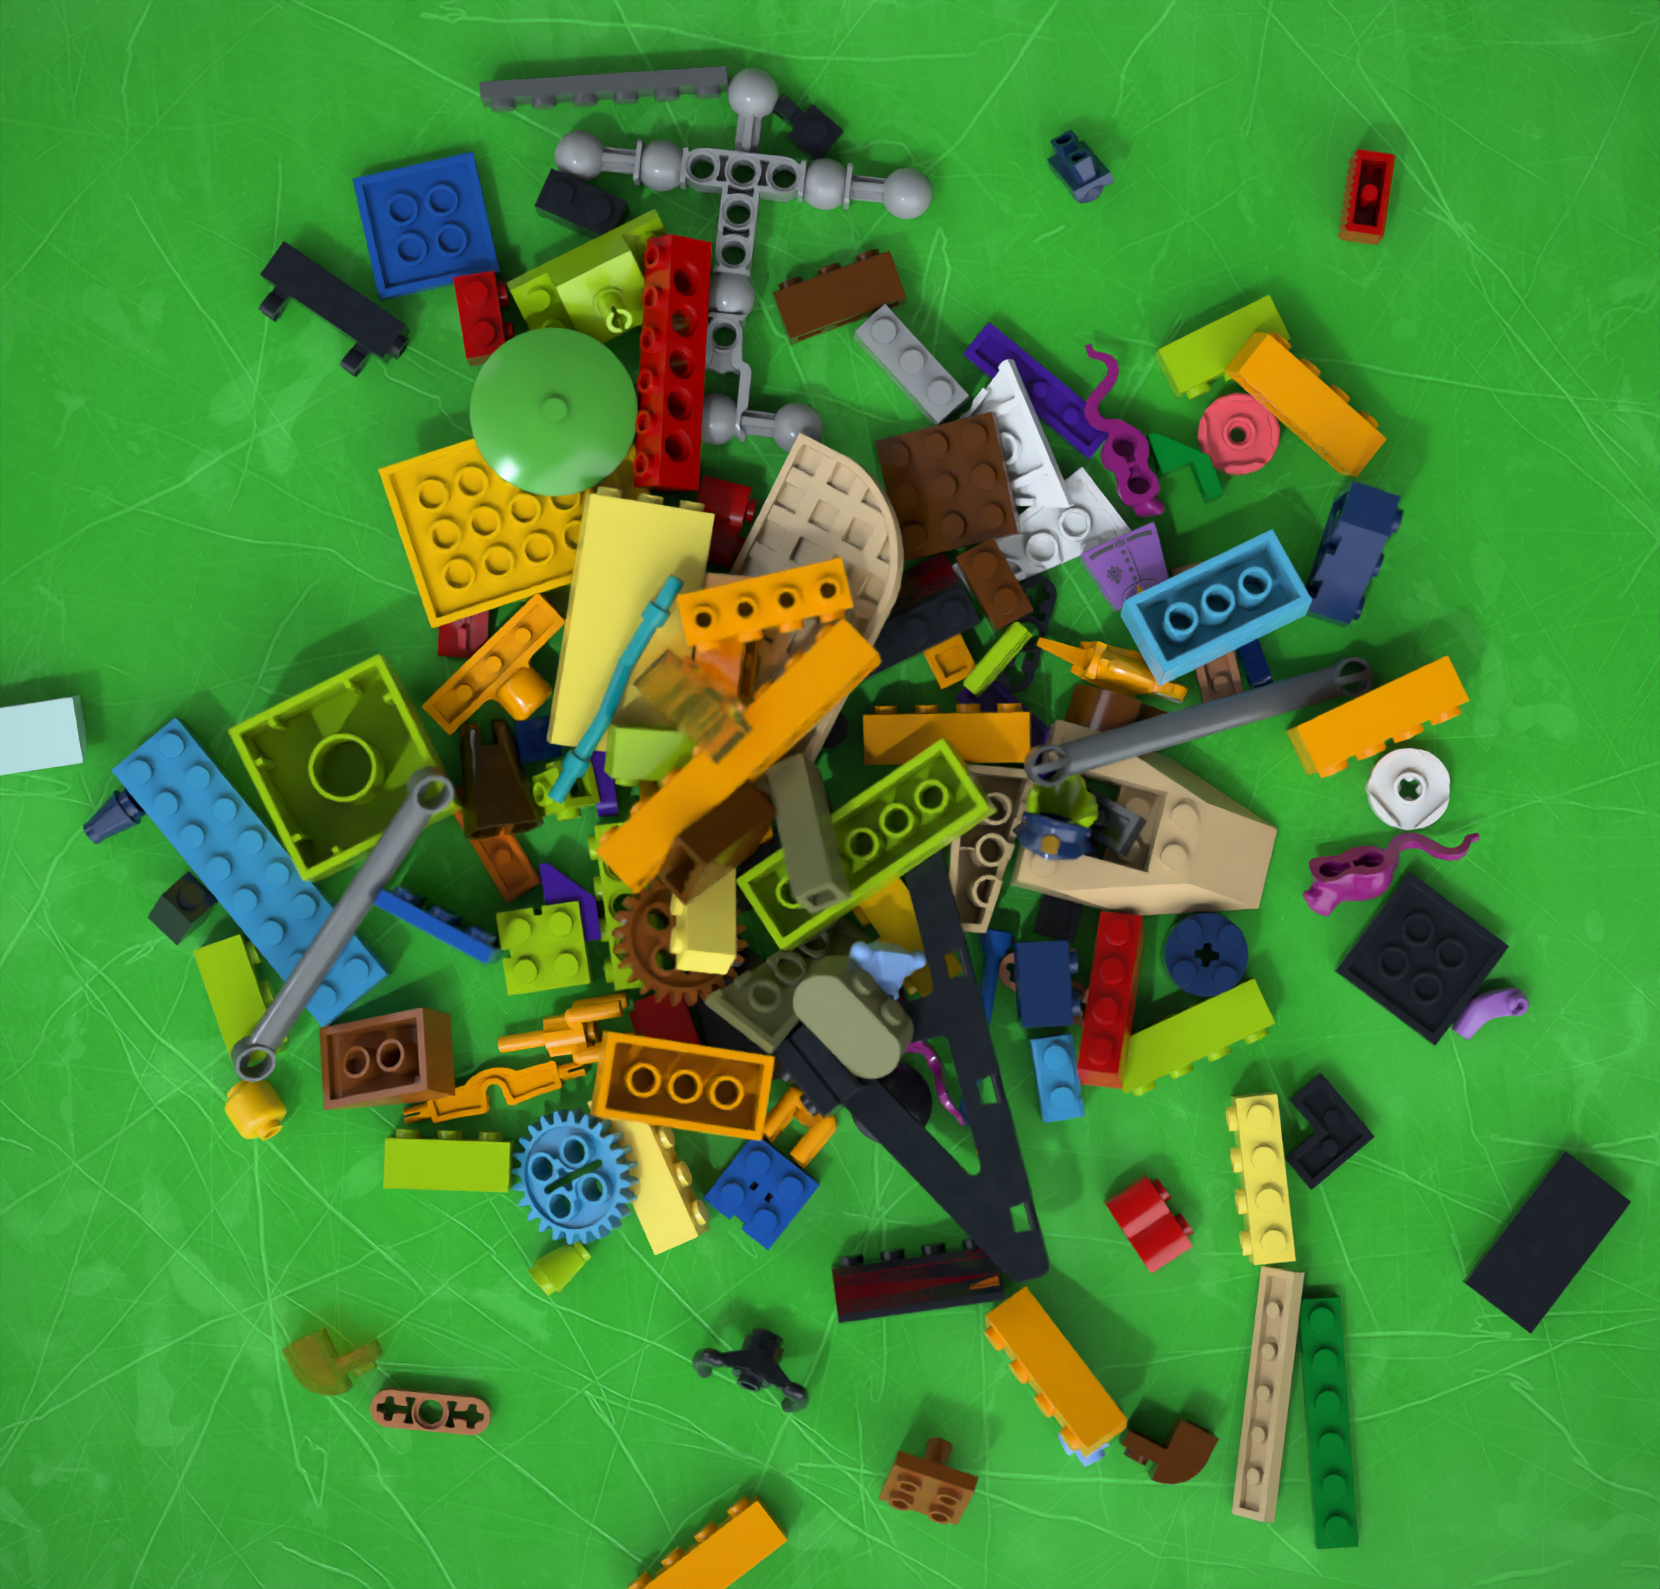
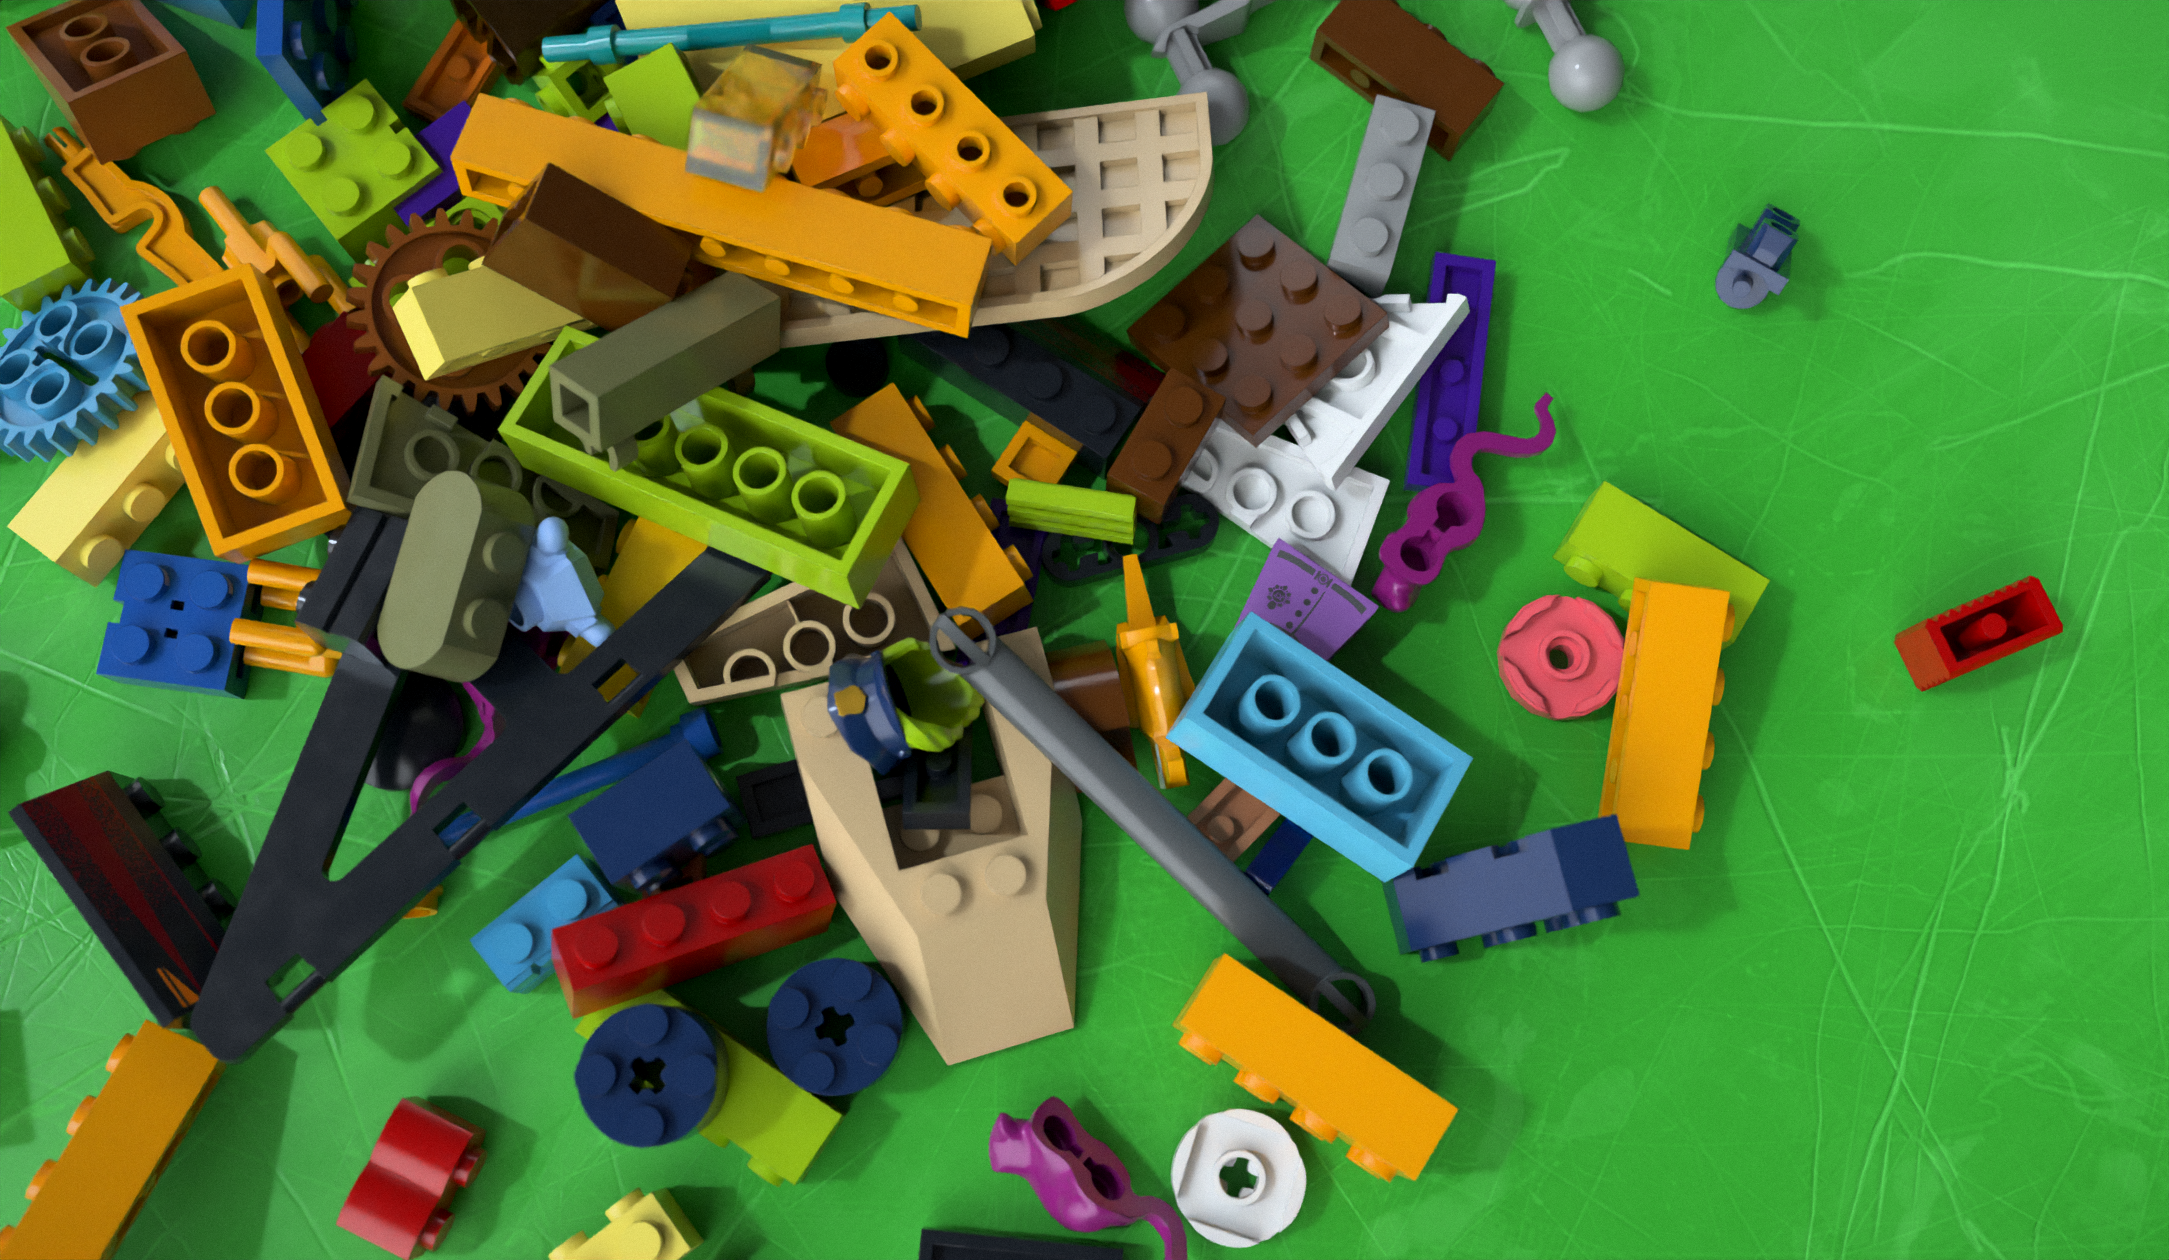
camera: 55 degrees right, 10 degrees down
(731, 507) = (1048, 80): red brick -> none
(1173, 456) = (1481, 595): green slope -> none
(1199, 1075) = (614, 1073): none -> dark blue brick

